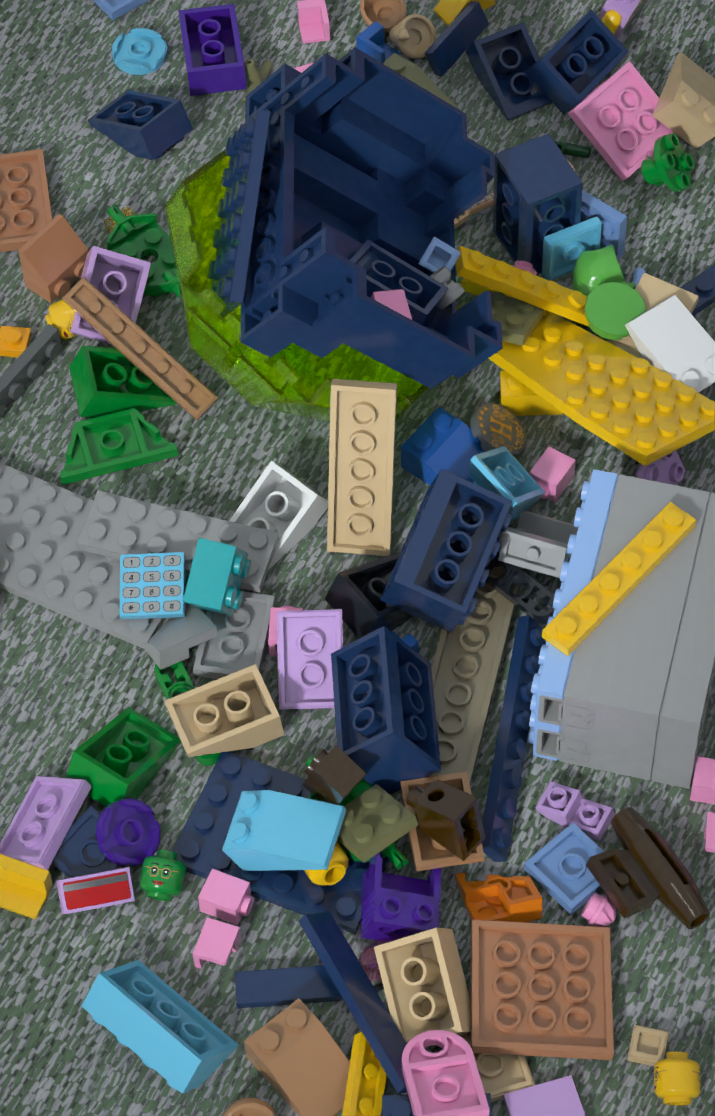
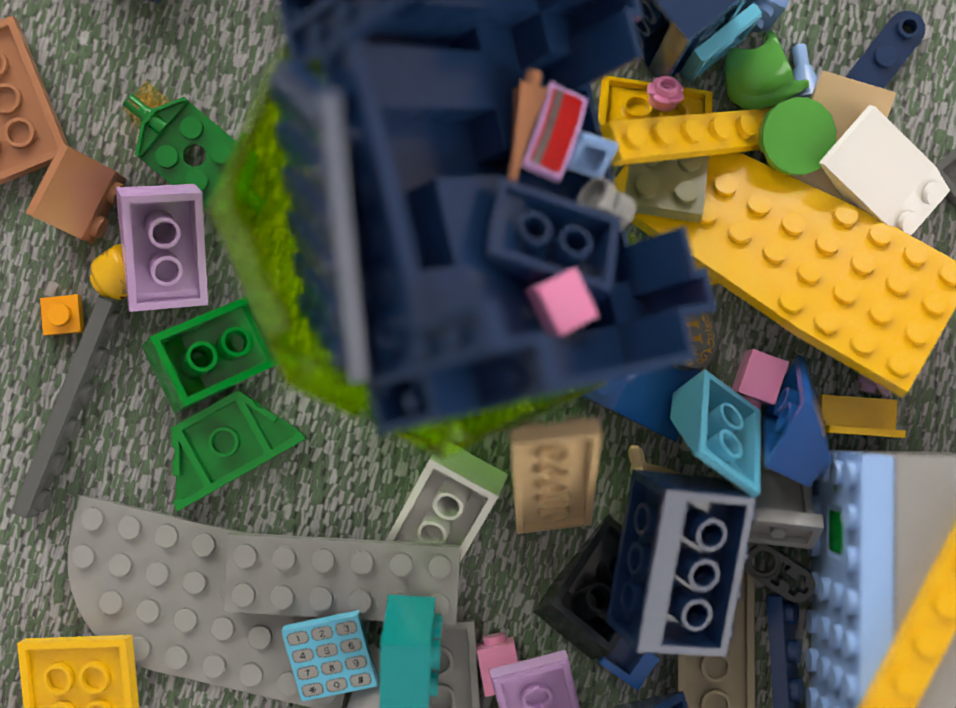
camera: 20 degrees left, 30 degrees up
(140, 348) = (188, 299): medium nougat tile -> none
(400, 216) = (526, 106): none -> nougat piece
(415, 235) = (554, 133): none -> slope
(562, 480) = (795, 428): none -> blue slope

